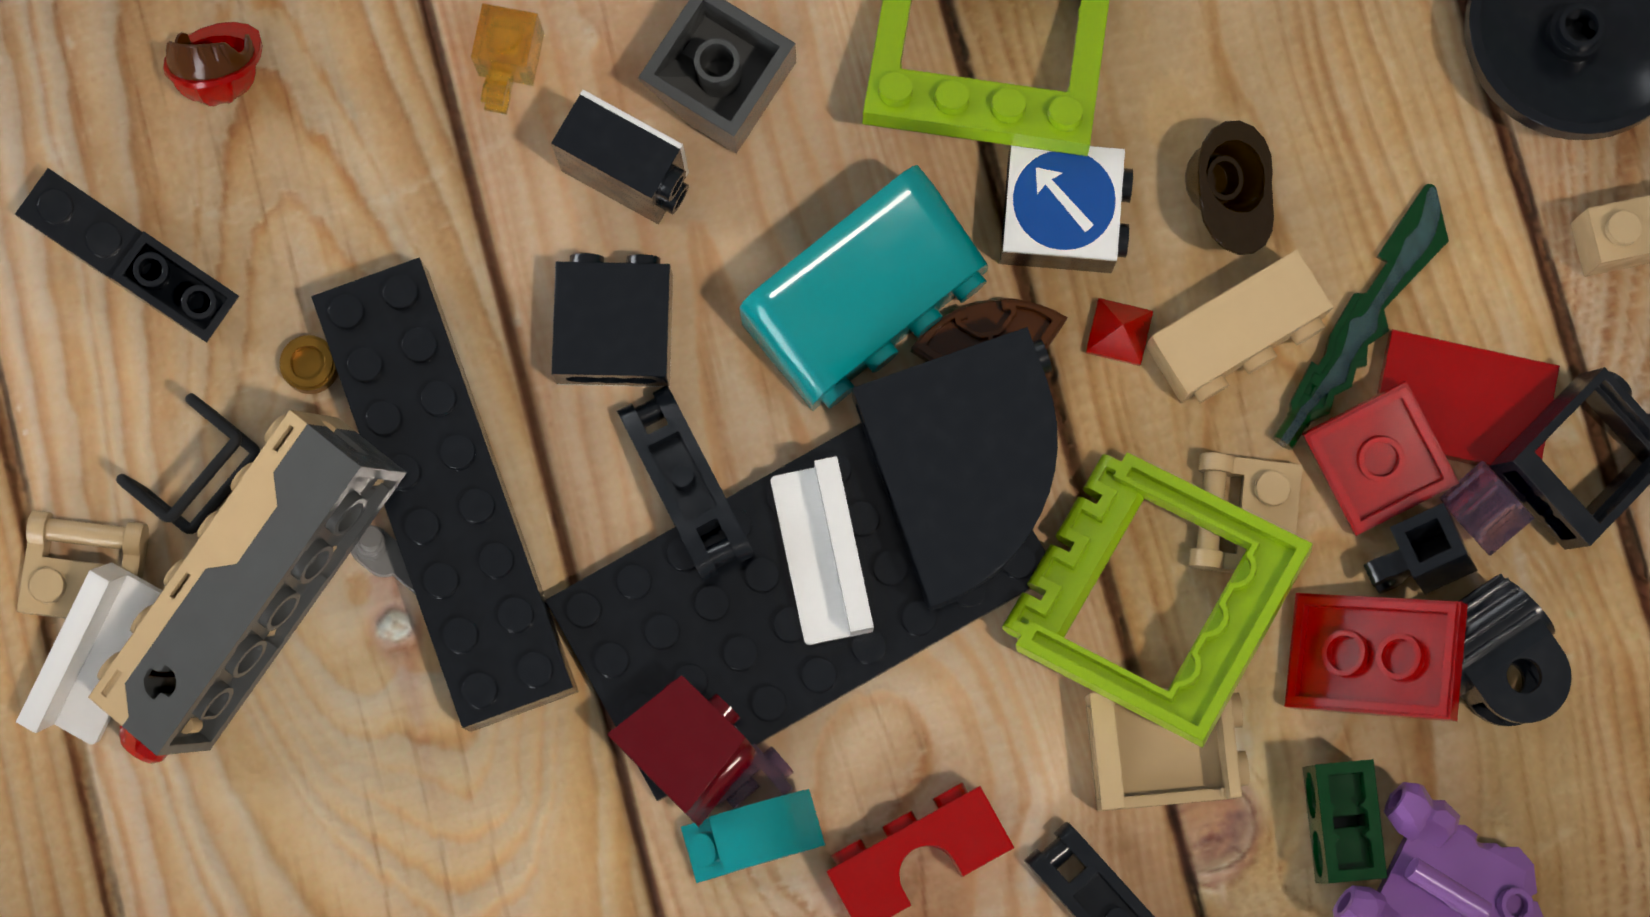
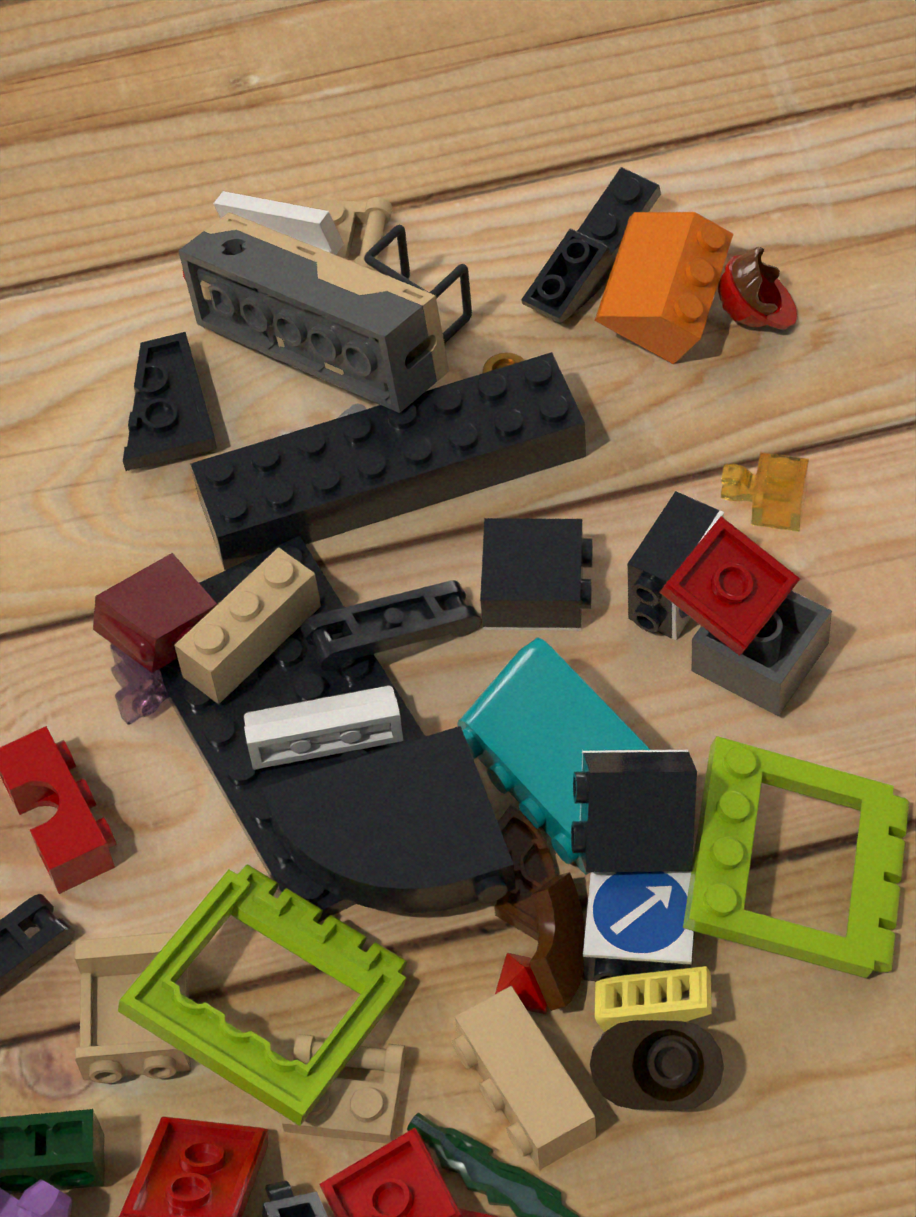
camera: 95 degrees right, 25 degrees down
(195, 164) = (664, 281): none -> orange slope
(341, 774) = (168, 406): none -> black wing
(680, 86) = (730, 585): none -> red tile
(698, 640) = (248, 625): none -> tan brick
(753, 835) = (85, 683): teal brick -> none
(969, 192) = (635, 810): none -> black piece
(1082, 291) = (560, 946): none -> reddish brown tile
(1161, 240) = (640, 996): none -> light yellow slope

